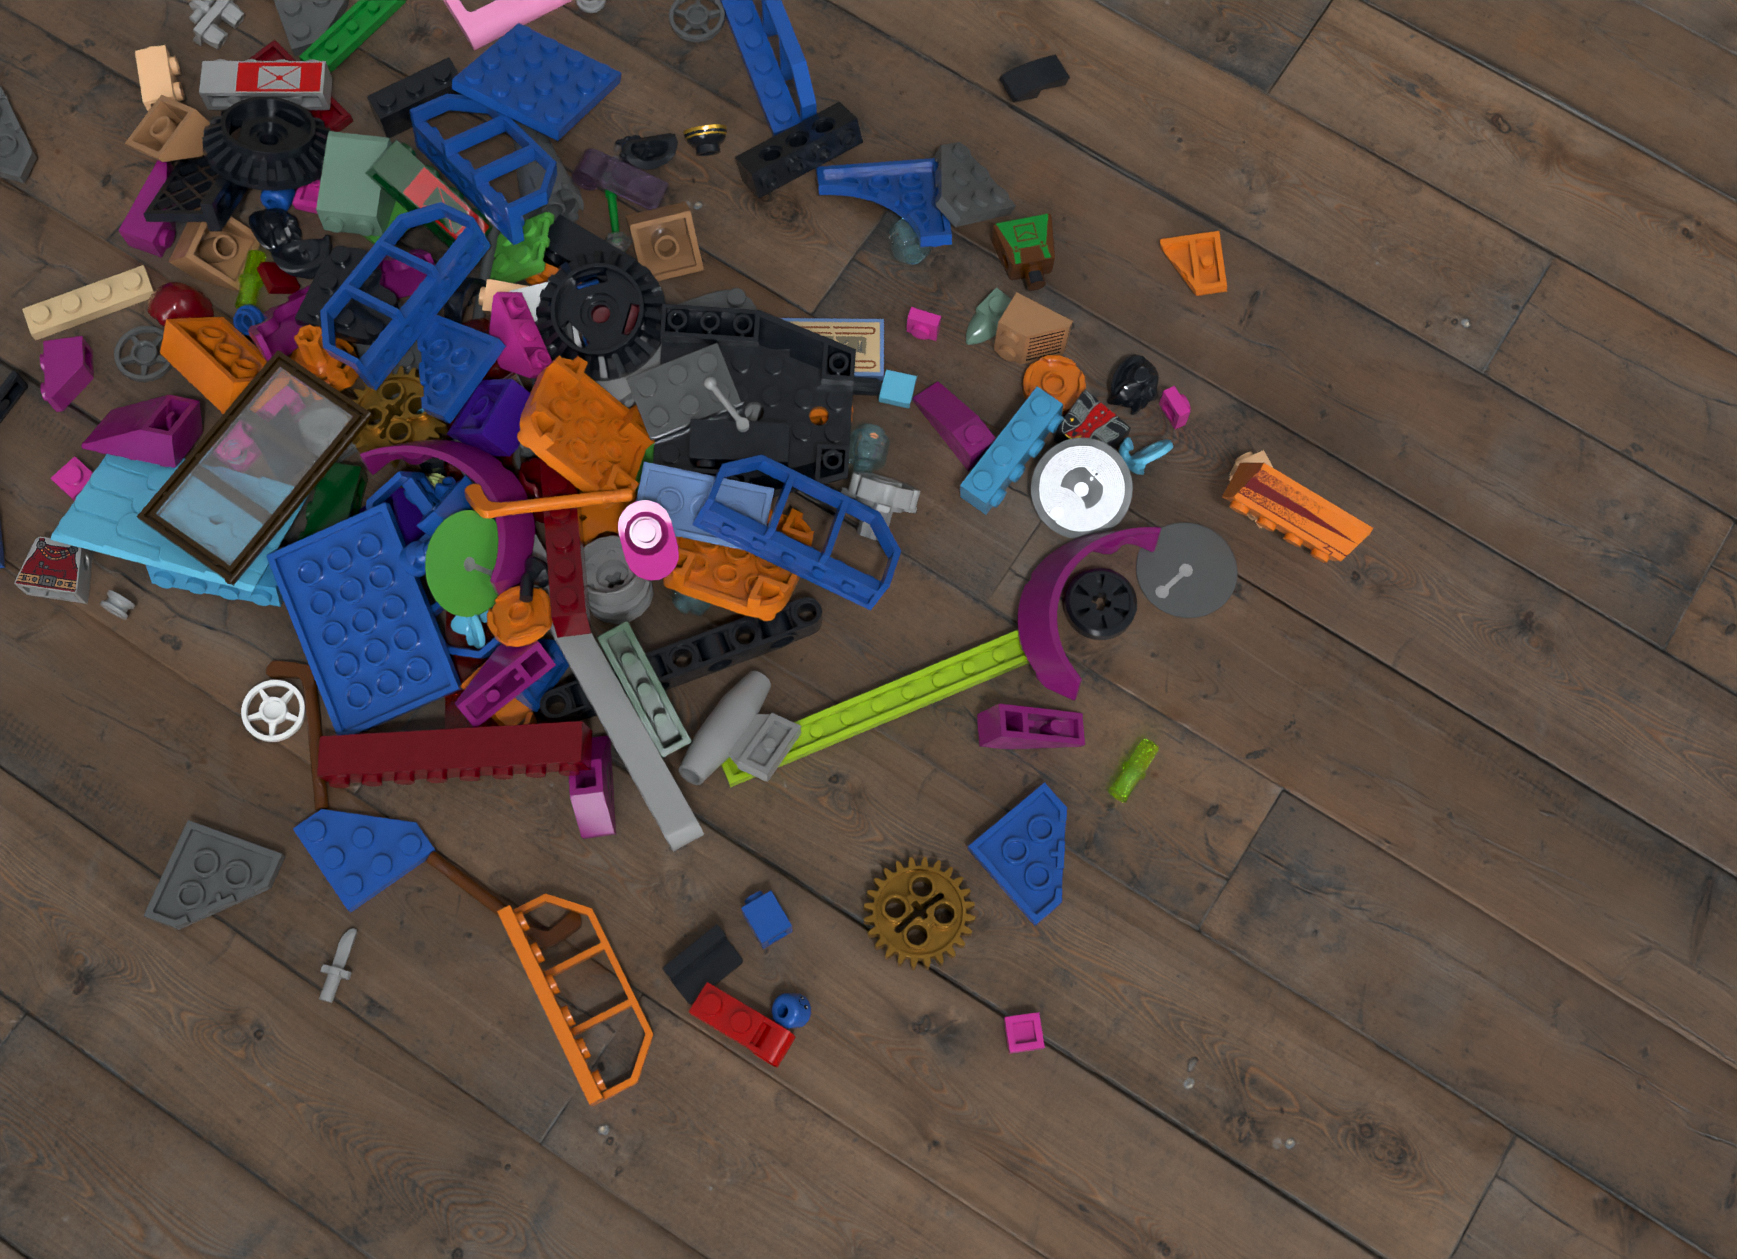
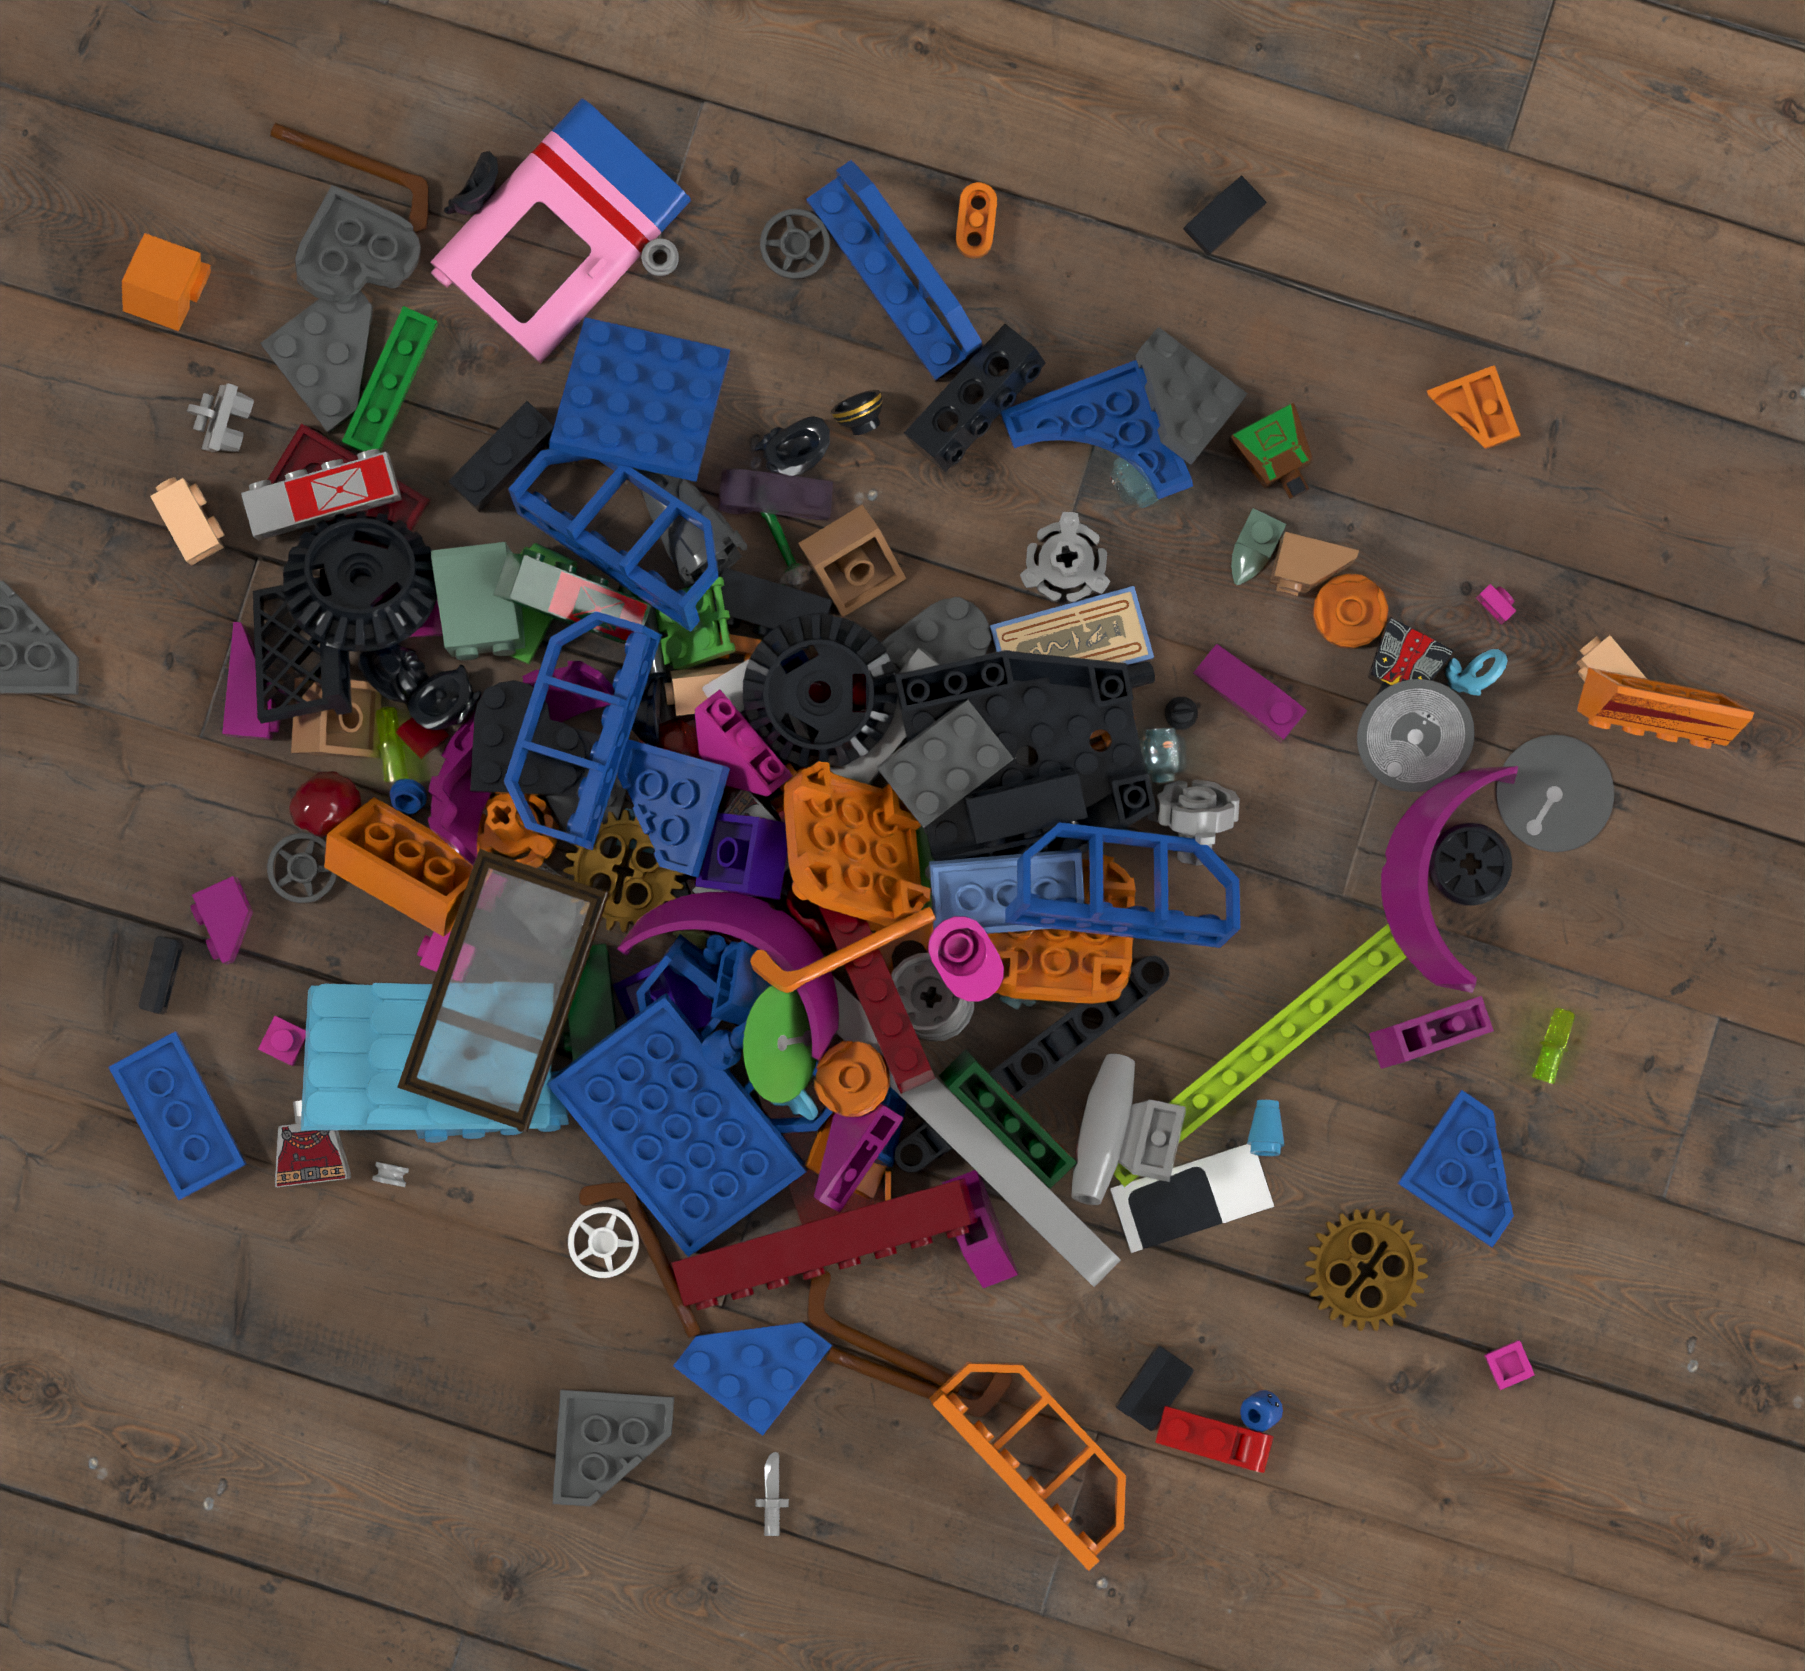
camera: 10 degrees left, 15 degrees up
(88, 302) = (214, 823): tan plate -> none
(149, 431) = (348, 967): magenta slope -> none
(169, 131) = (235, 595): medium nougat slope -> none
(432, 824) = (820, 1319): none -> reddish brown piece
(534, 574) = (852, 1026): black plate -> none
(741, 423) = (1026, 791): light grey hinge -> none
(766, 918) = (1206, 1321): blue brick -> none
(786, 813) = (1193, 1199): none -> sticker
(834, 284) = (1055, 572): none -> light grey piece
(840, 36) = (976, 221): none -> orange plate
(866, 772) = (1266, 1129): none -> dark azure cone
(894, 424) = (1181, 713): none -> black piece
(897, 389) = (1173, 667): medium azure tile -> none
(923, 324) = (1182, 582): dark pink plate -> none
(1011, 451) = (1326, 713): dark azure brick -> none
(1134, 383) = (1442, 583): black hat -> none

